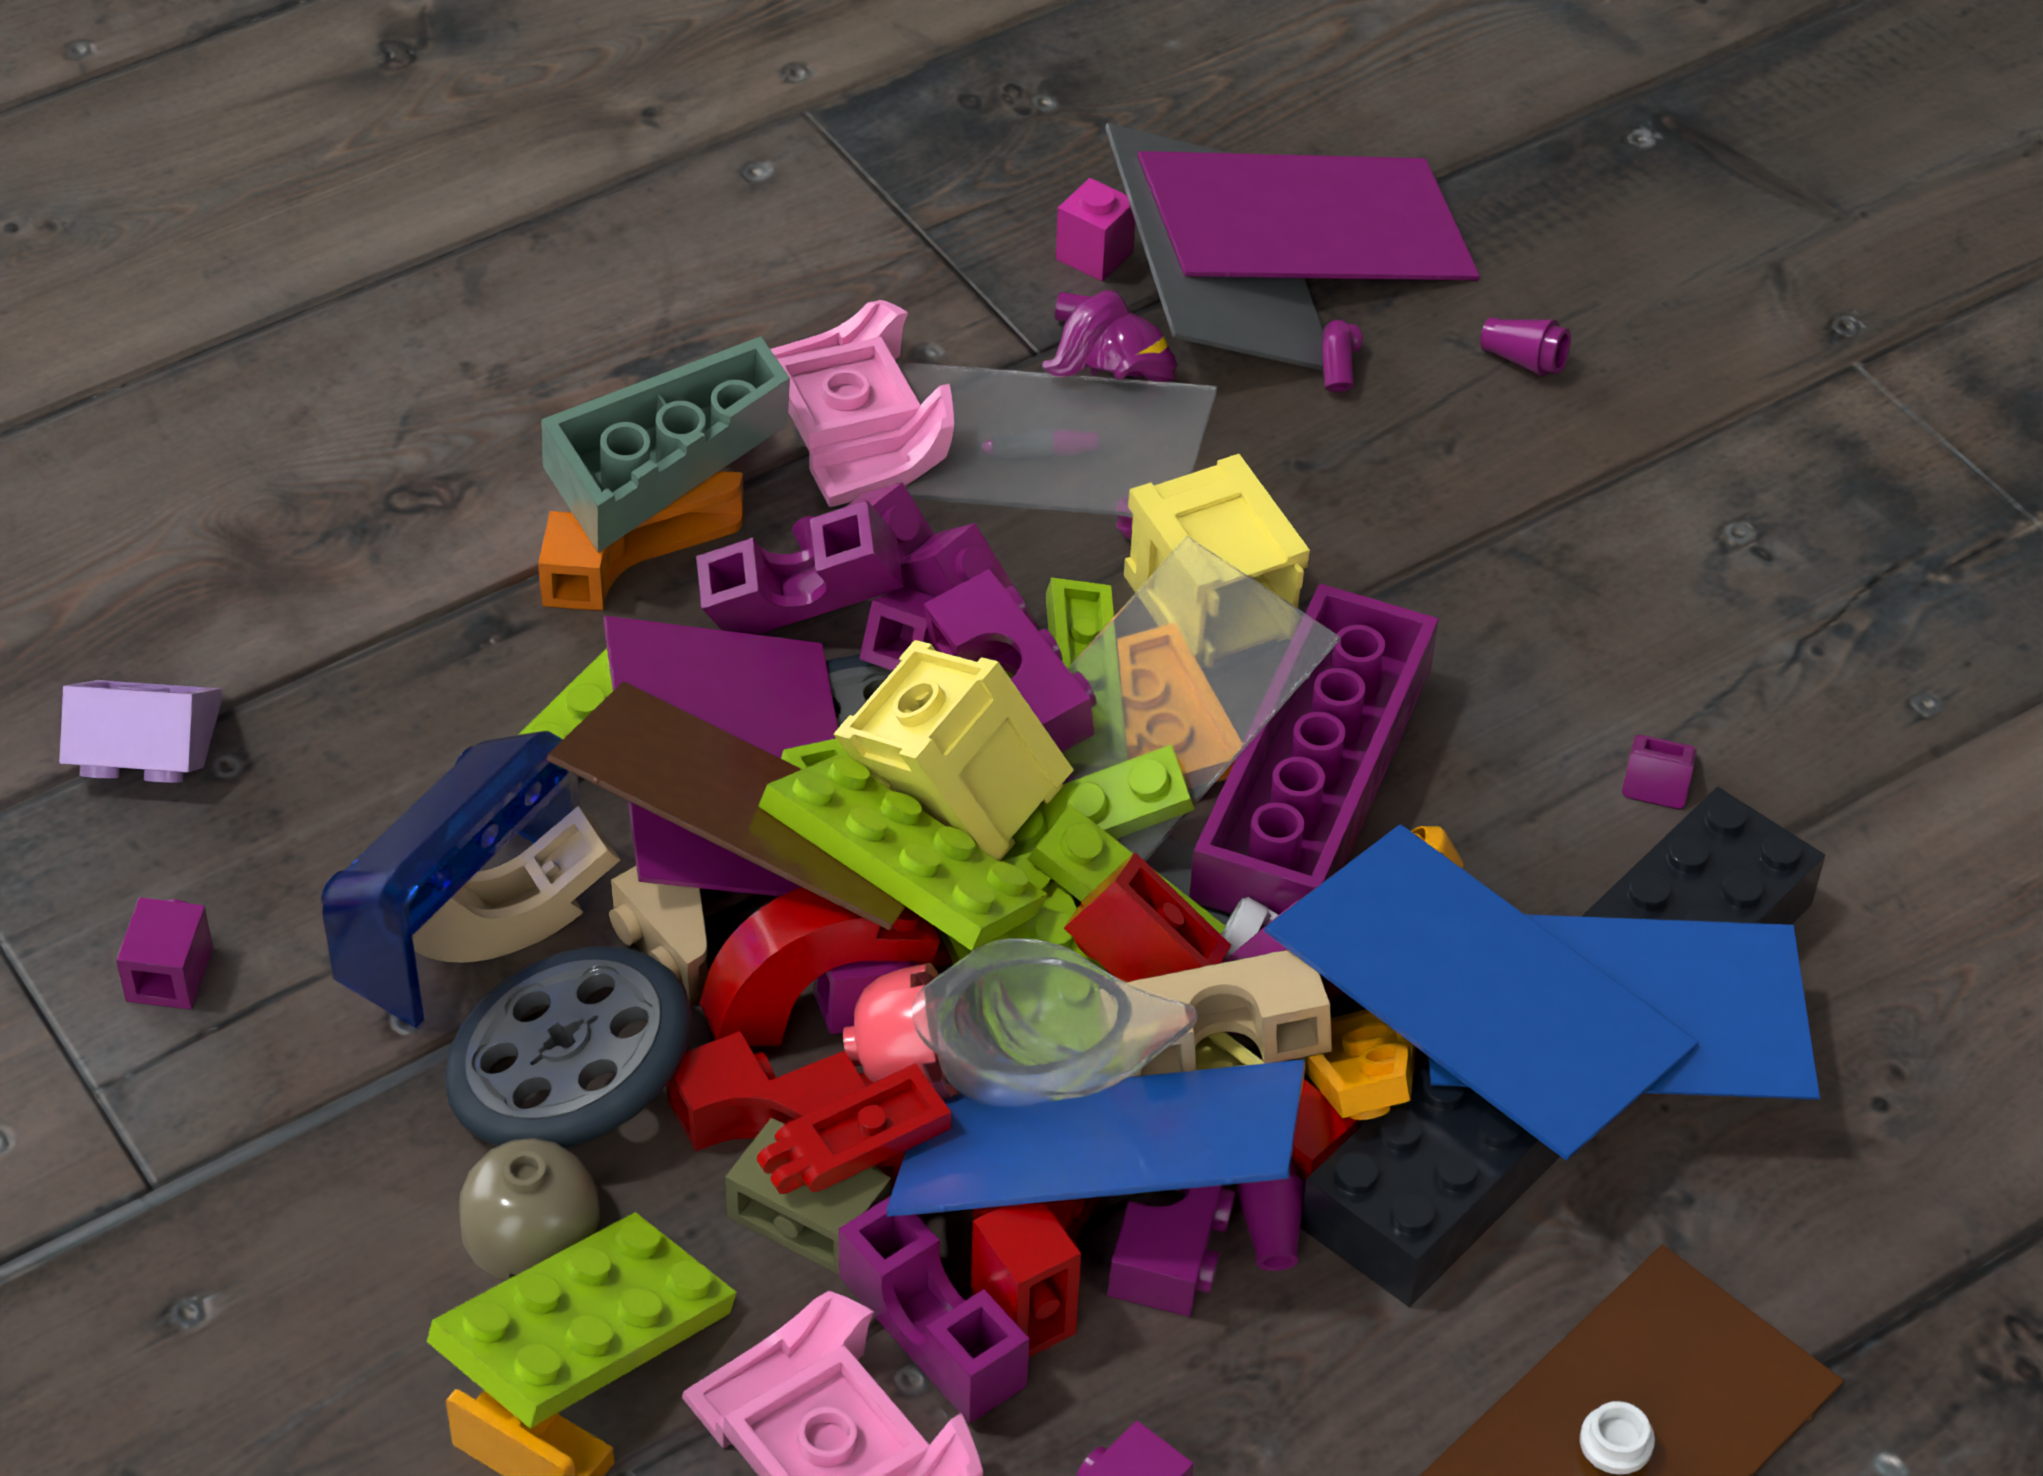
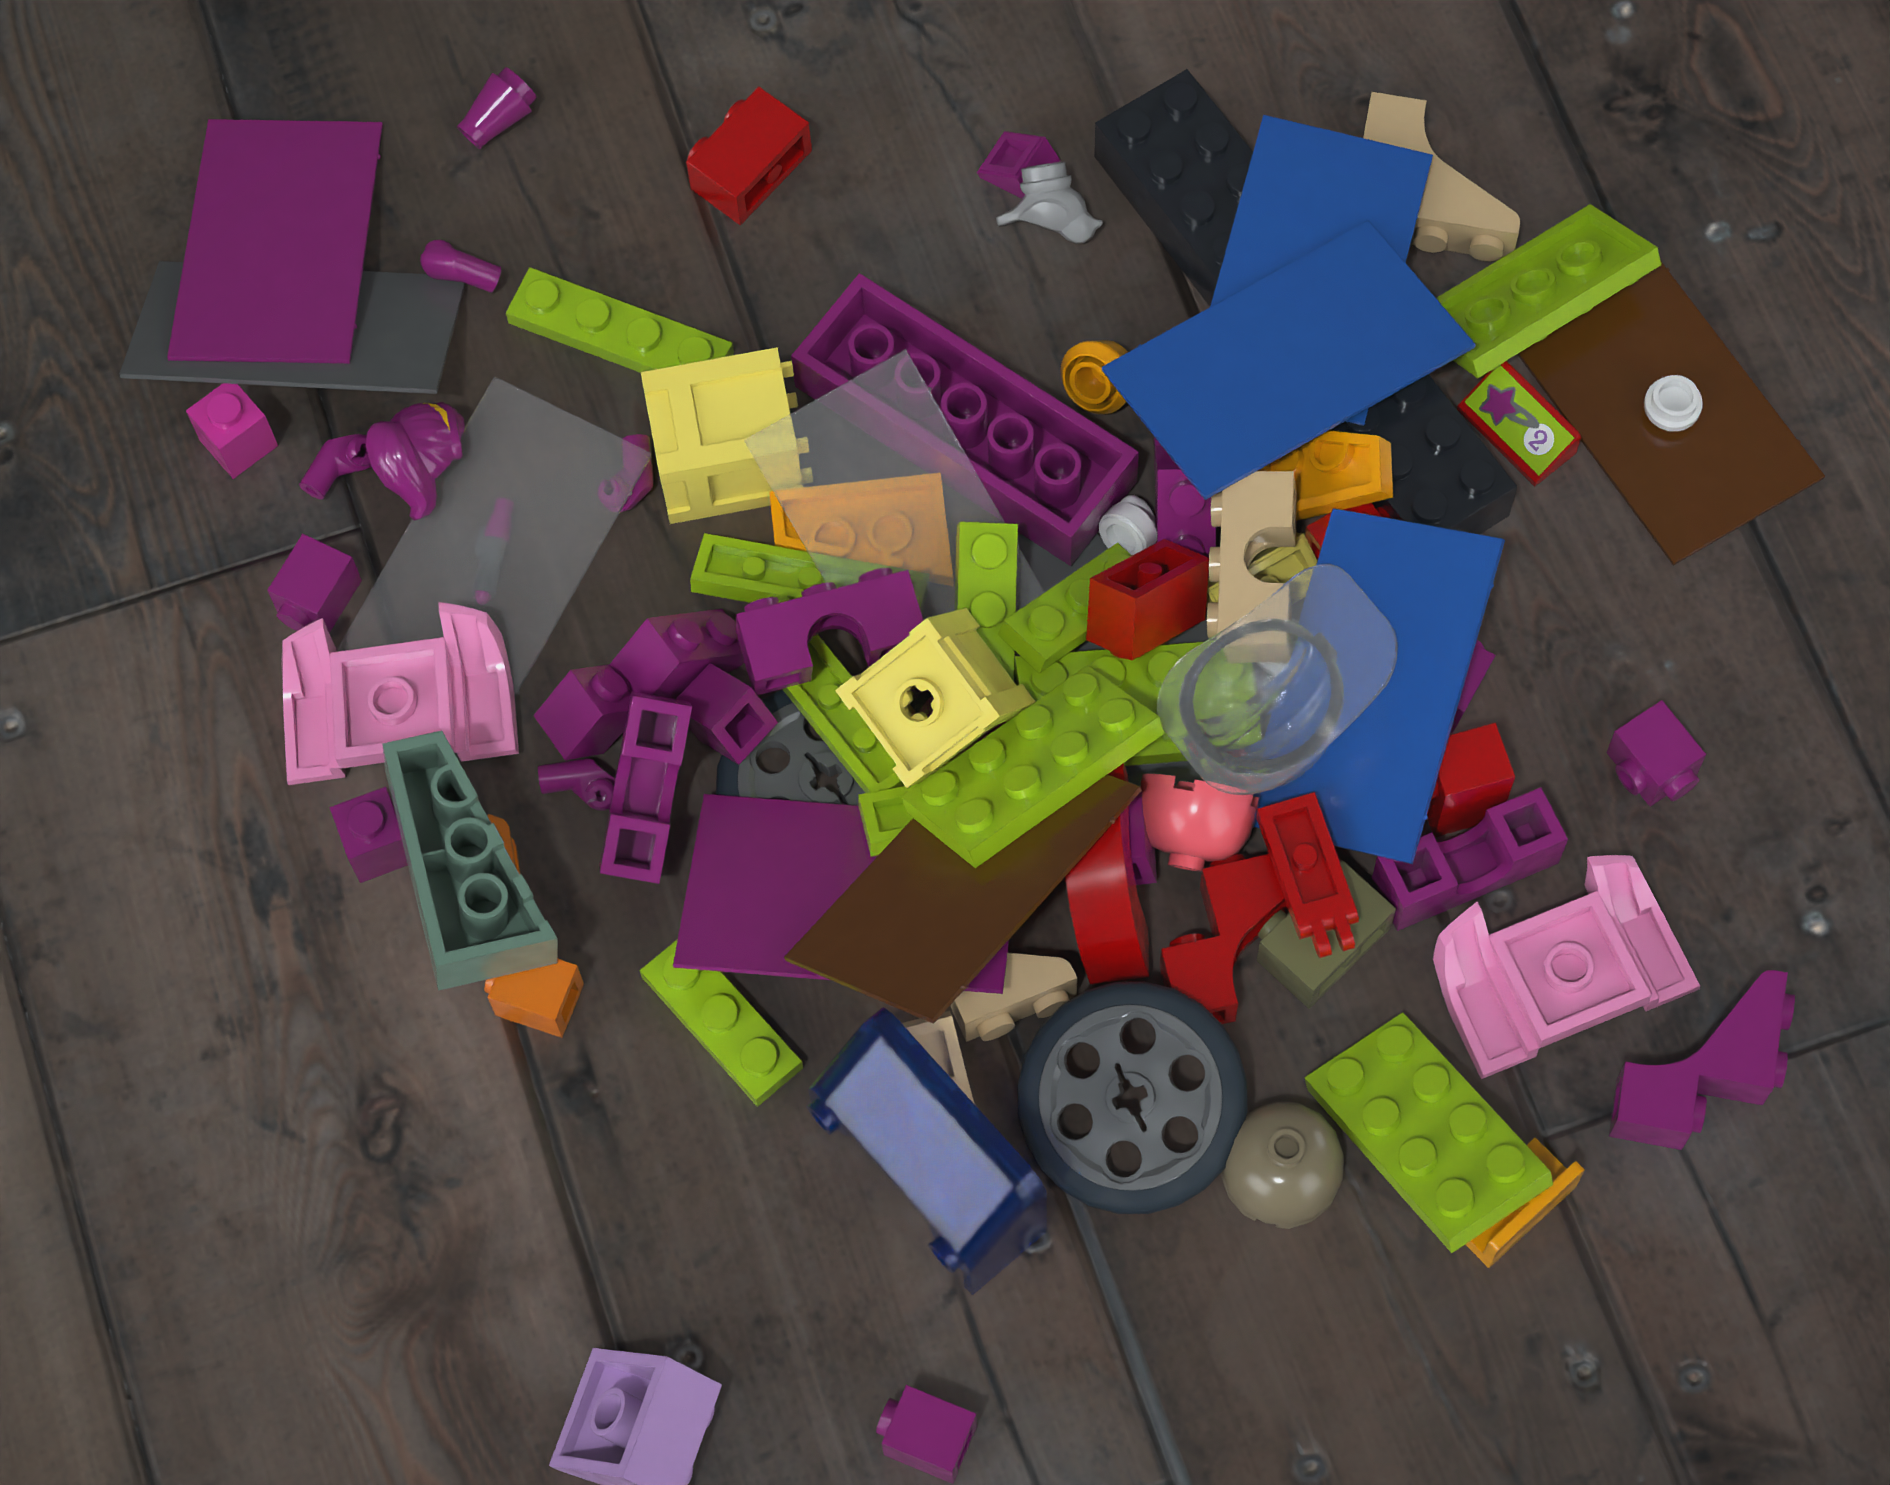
camera: 70 degrees left, 20 degrees up
(952, 320) = (313, 584): none -> magenta brick
(1322, 482) = (608, 326): none -> lime plate
(1527, 1287) = (1520, 423): none -> slope
(1559, 537) = (748, 155): none -> red brick
(1617, 793) = (1052, 204): none -> light grey animal
(1701, 1256) = (1545, 285): none -> lime plate
(1779, 1139) = (1453, 209): none -> tan arch

